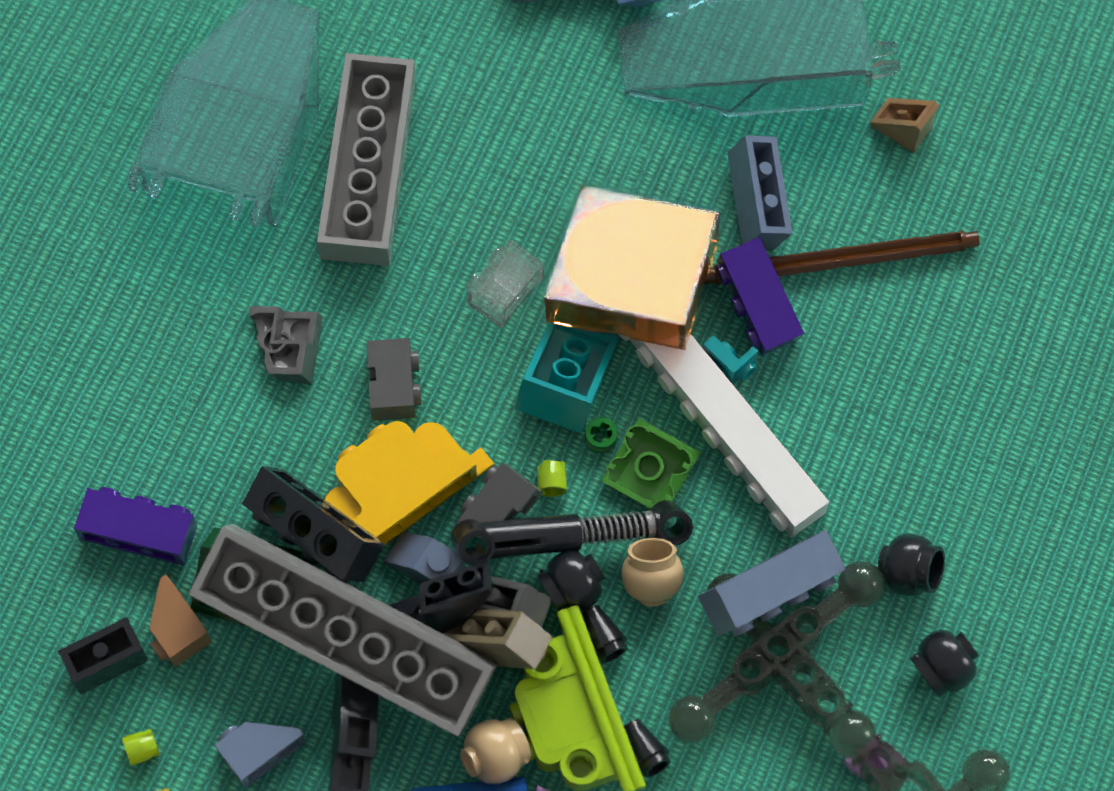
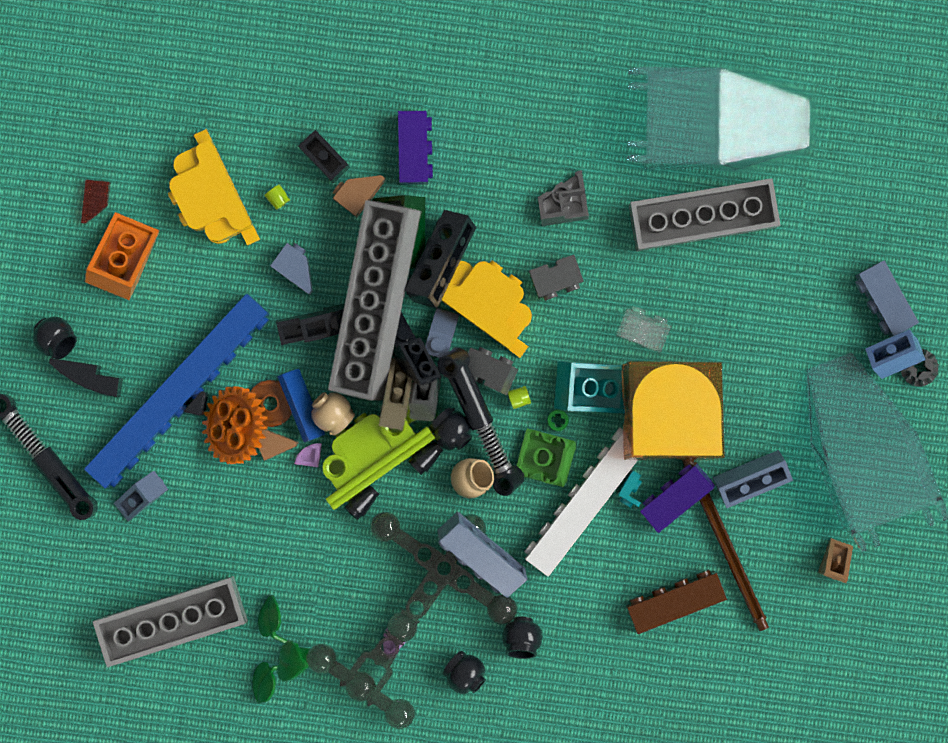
camera: 75 degrees right, 20 degrees up
(909, 342) = (676, 602): none -> reddish brown brick

